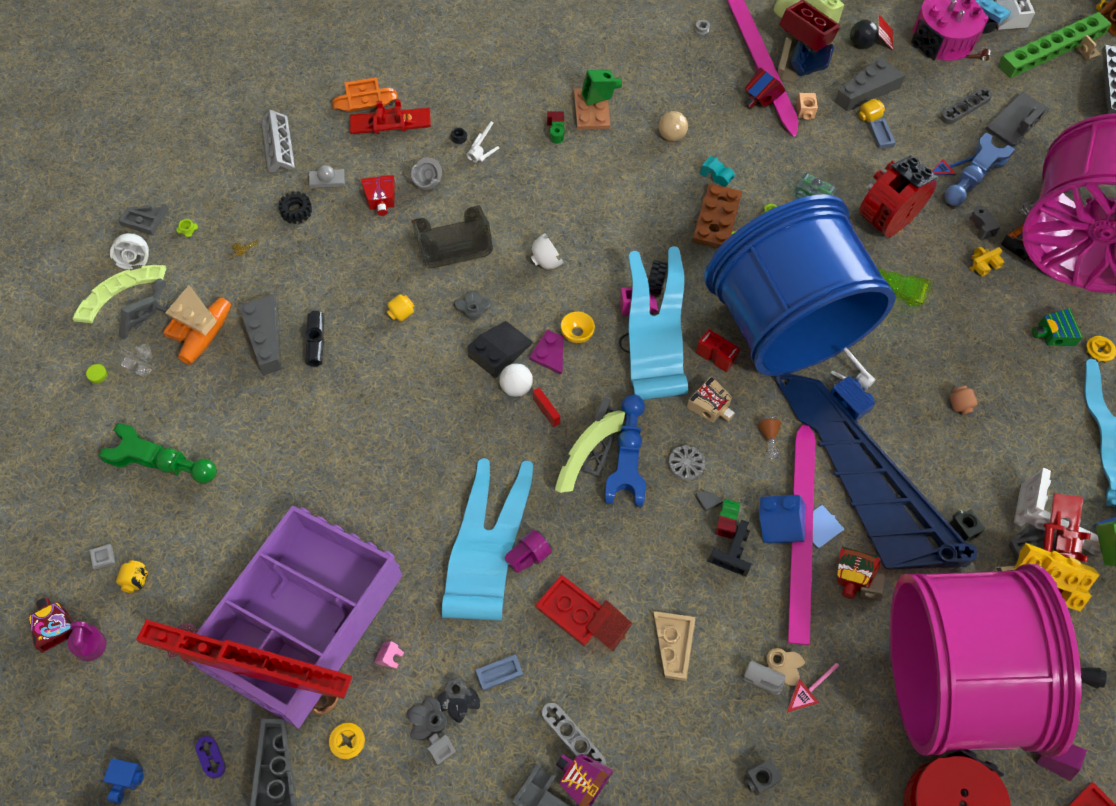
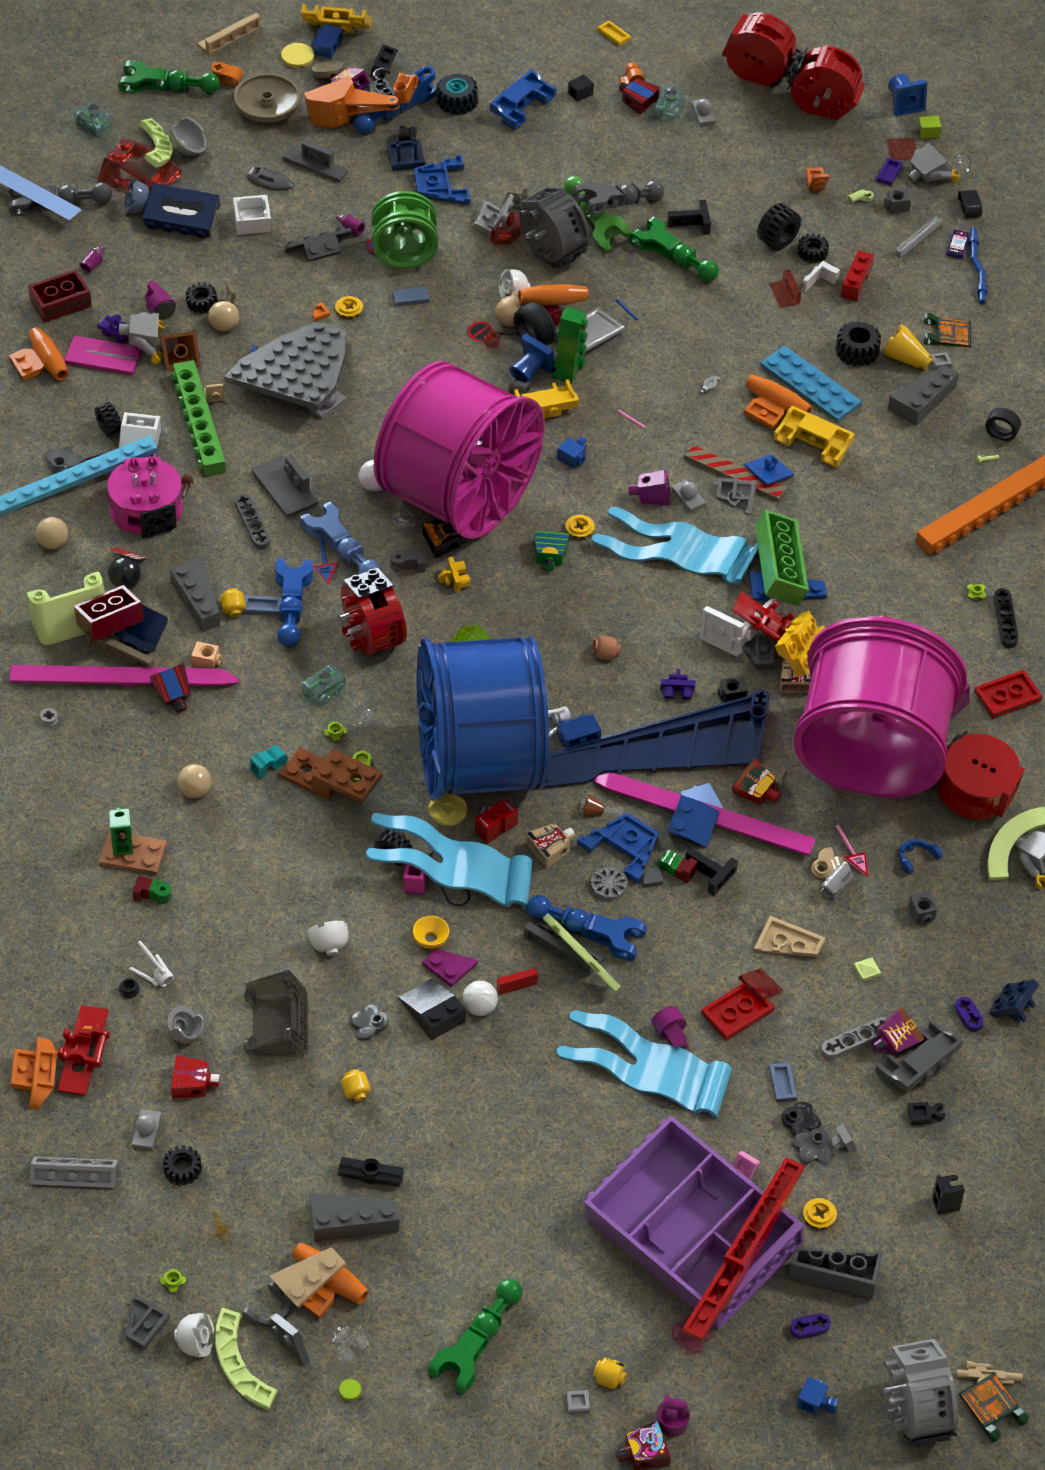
camera: 75 degrees left, 10 degrees down
(665, 733) = (867, 969): none -> yellowish green tile
(718, 316) = (448, 810): none -> light yellow tile
(746, 470) = (627, 836): none -> blue wing
(844, 747) = (934, 849): none -> blue piece
(898, 148) = (293, 582): none -> blue piece
(949, 481) = (677, 682): none -> dark purple hips

